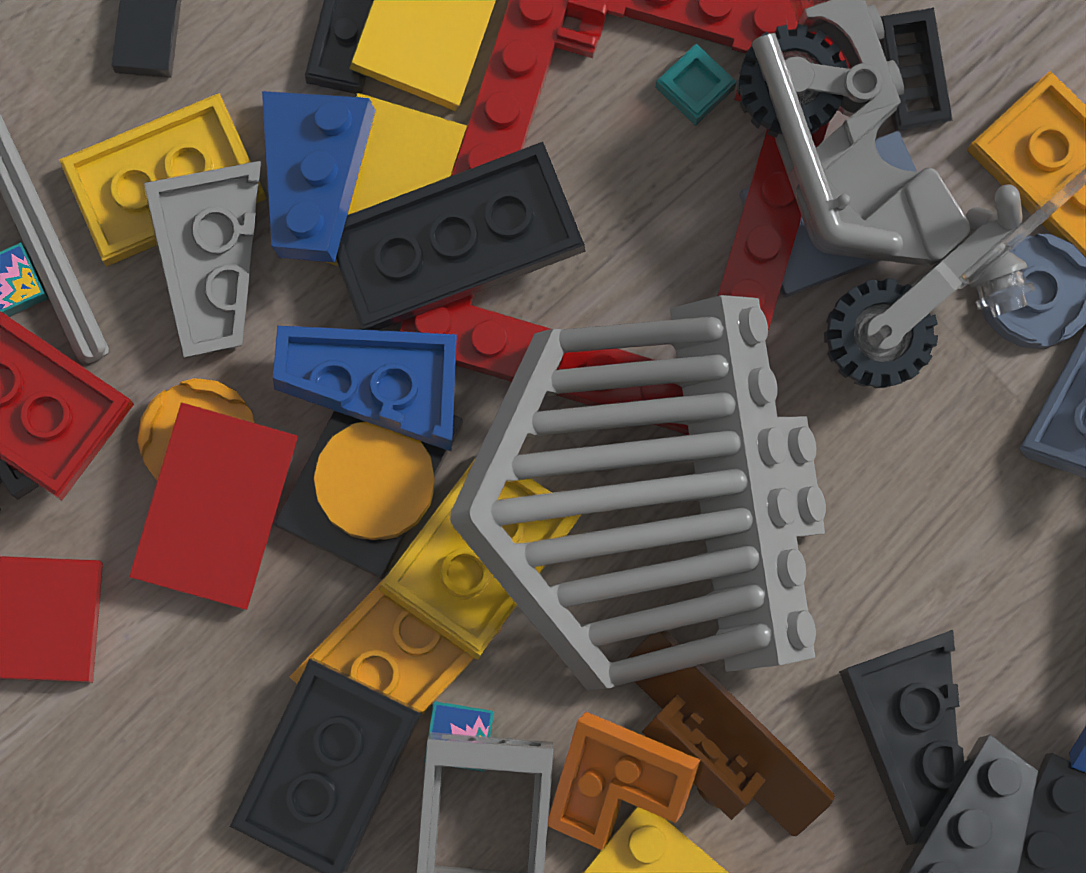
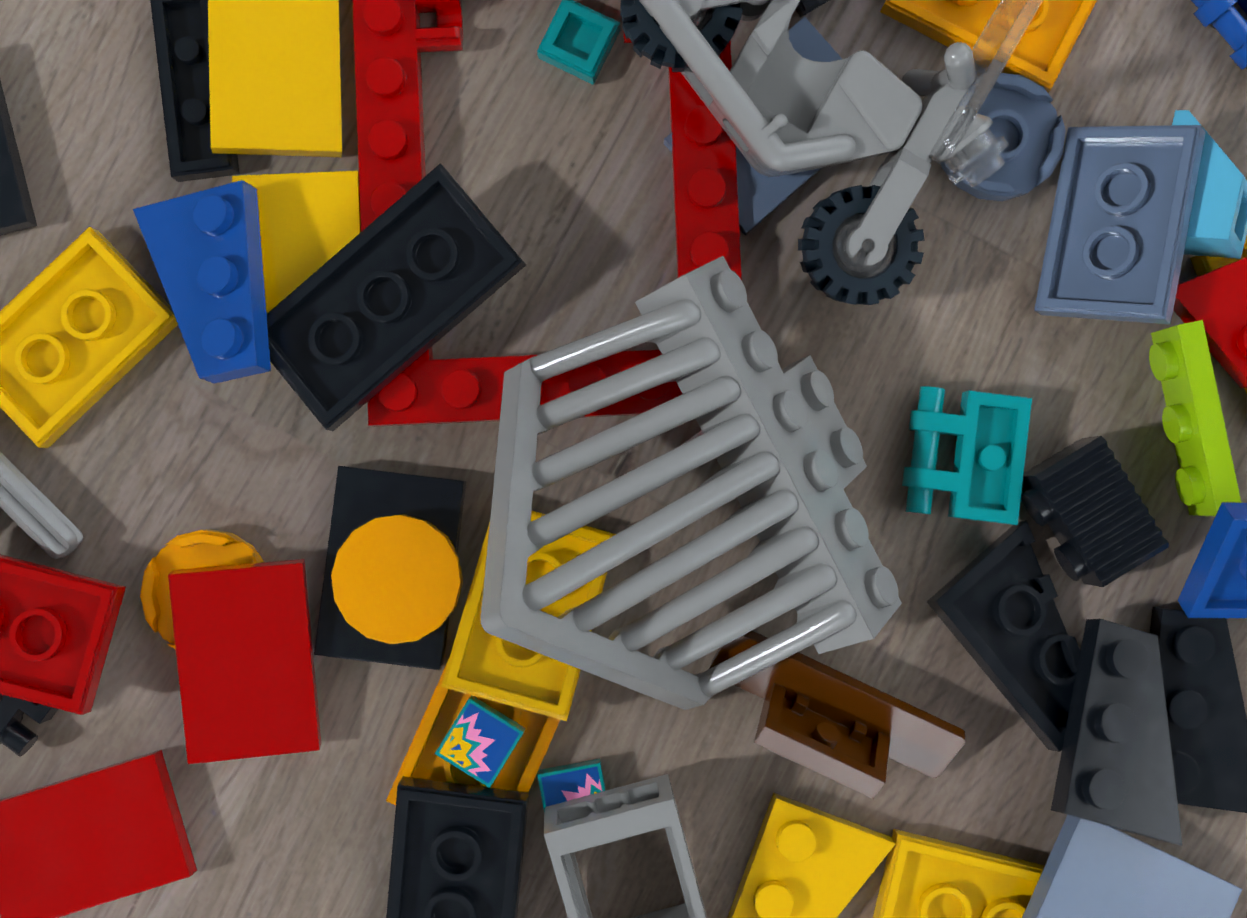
camera: 15 degrees left, 10 degrees up
(205, 252) = (136, 402): light grey wing -> none
(374, 376) = (355, 474): blue wing -> none
(395, 648) = (480, 741): none -> tile
(613, 766) = (738, 786): orange plate -> none
(936, 560) = (986, 460): none -> teal plate
(1012, 641) = (1092, 512): none -> black brick

